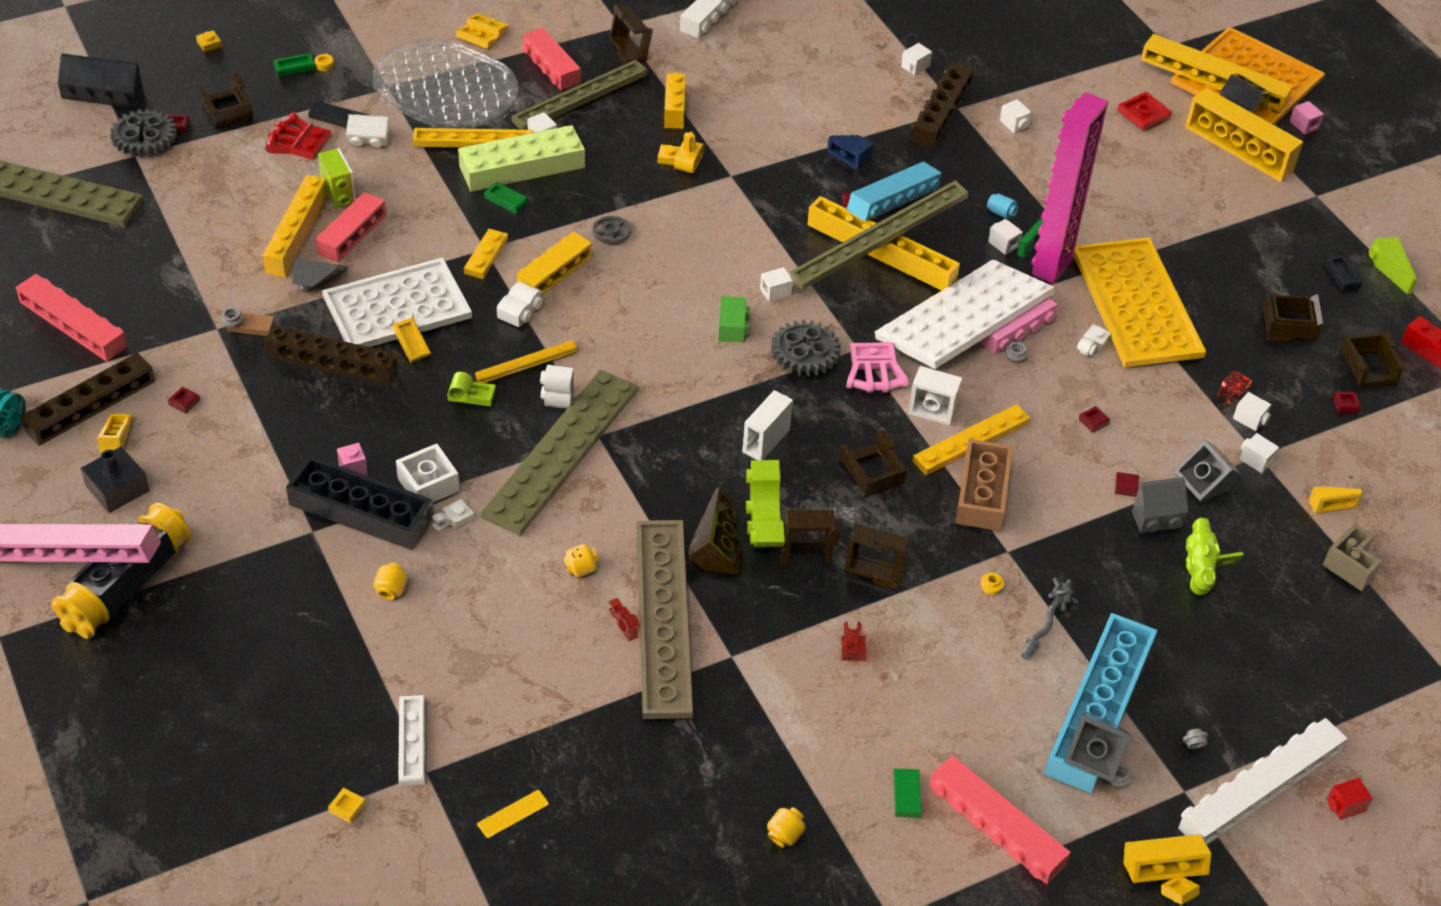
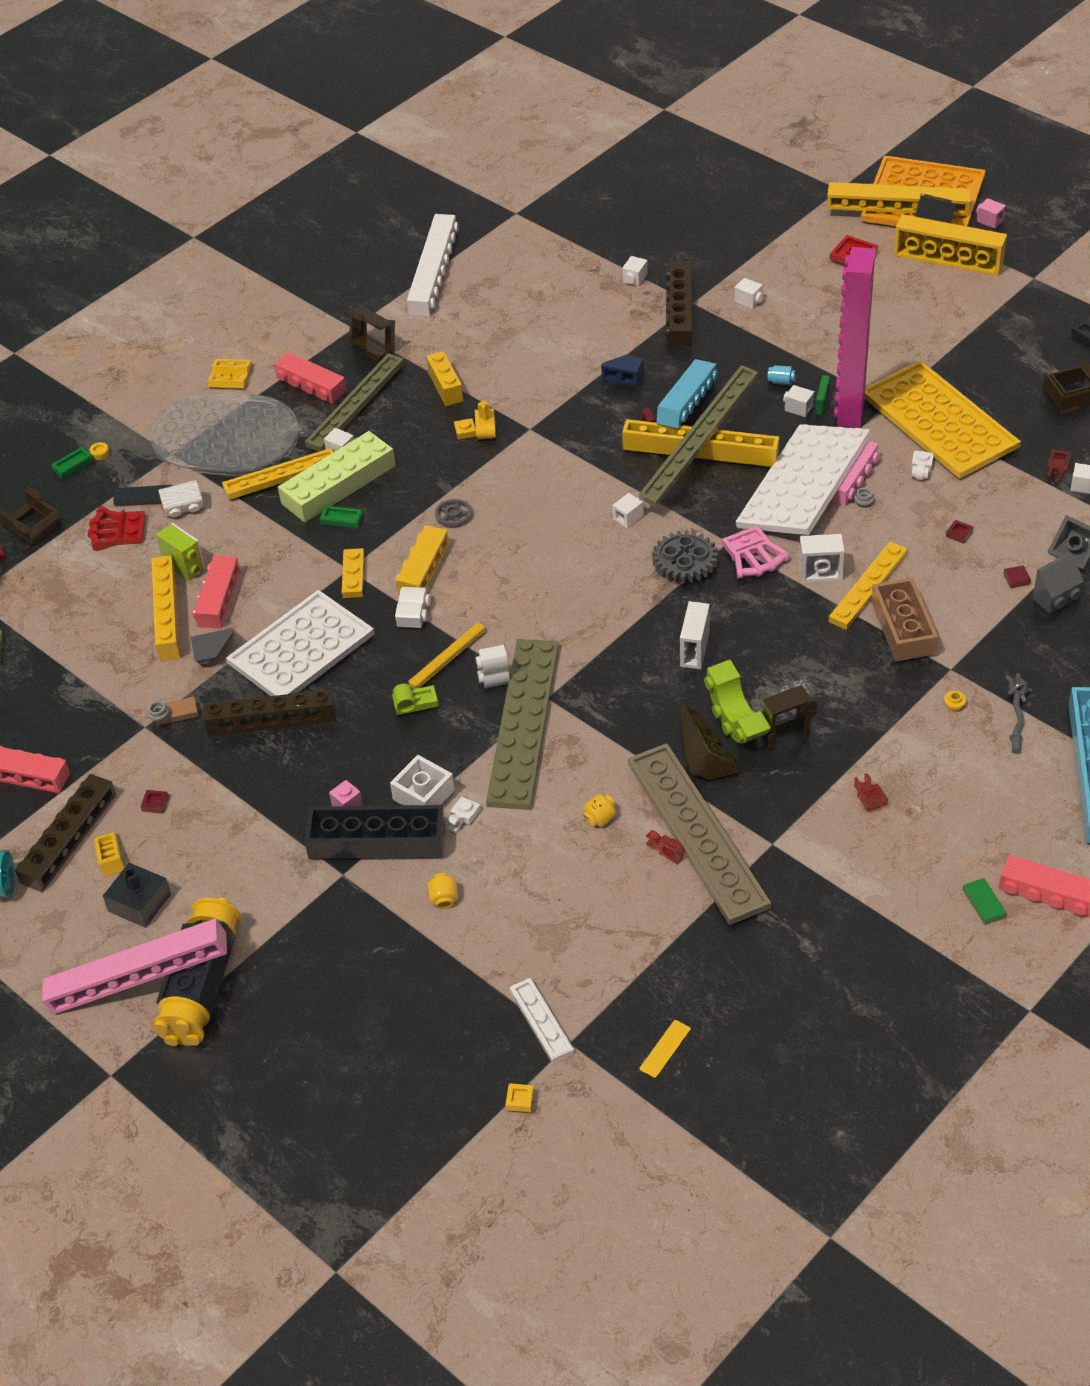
camera: 15 degrees left, 0 degrees up
(411, 340) = (334, 673): yellow tile -> none
(732, 319) = (608, 554): bright green brick -> none
(786, 826) = (904, 967): yellow head -> none
(881, 572) = (859, 725): dark brown piece -> none
(884, 448) = (802, 618): dark brown piece -> none

